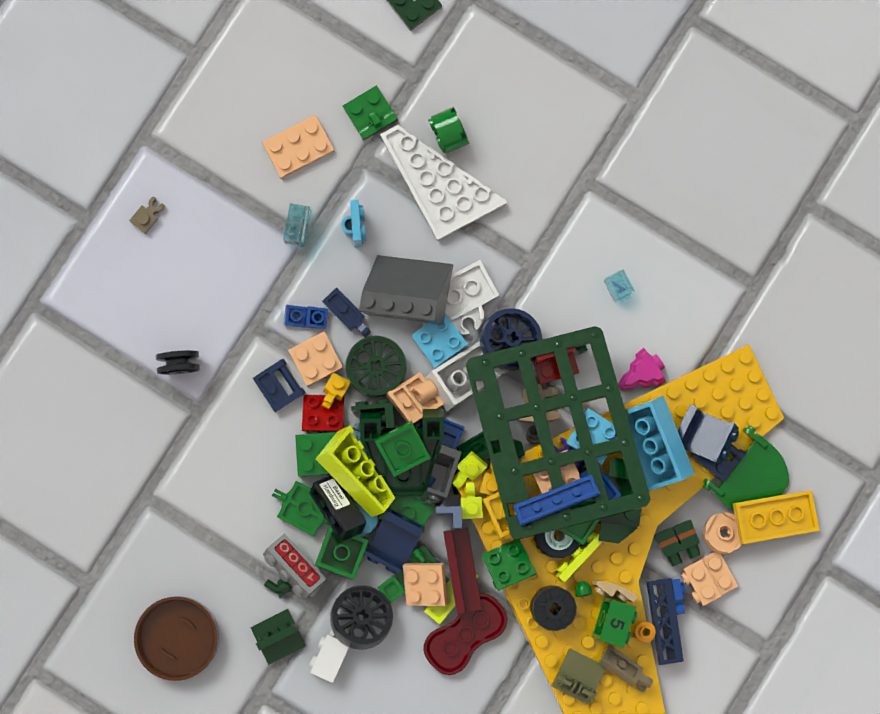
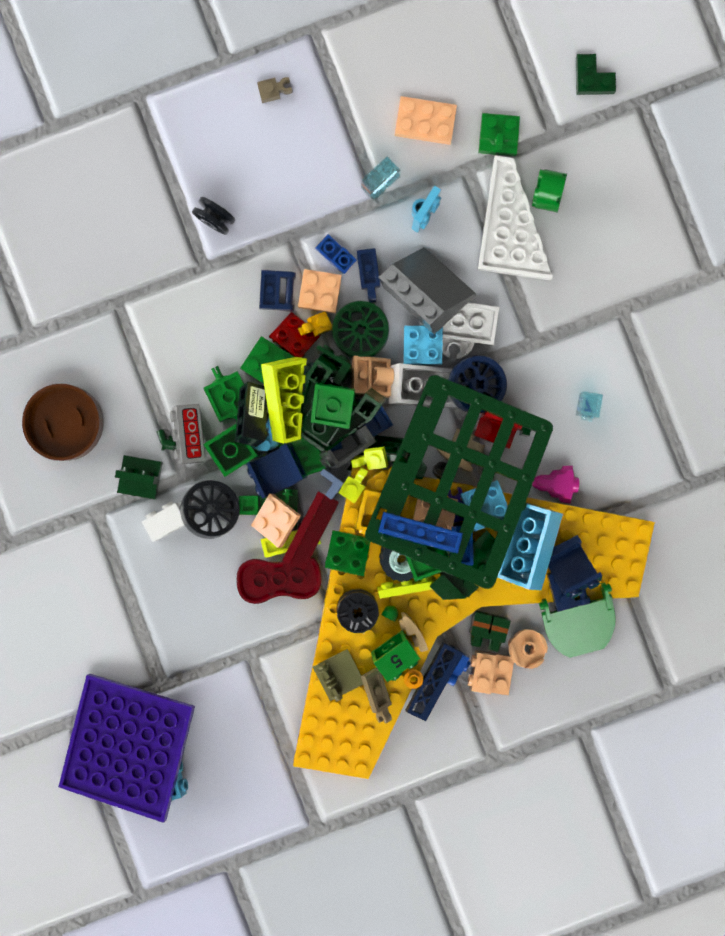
camera: 40 degrees right, 5 degrees up
(776, 517) = (576, 666): yellow plate -> none

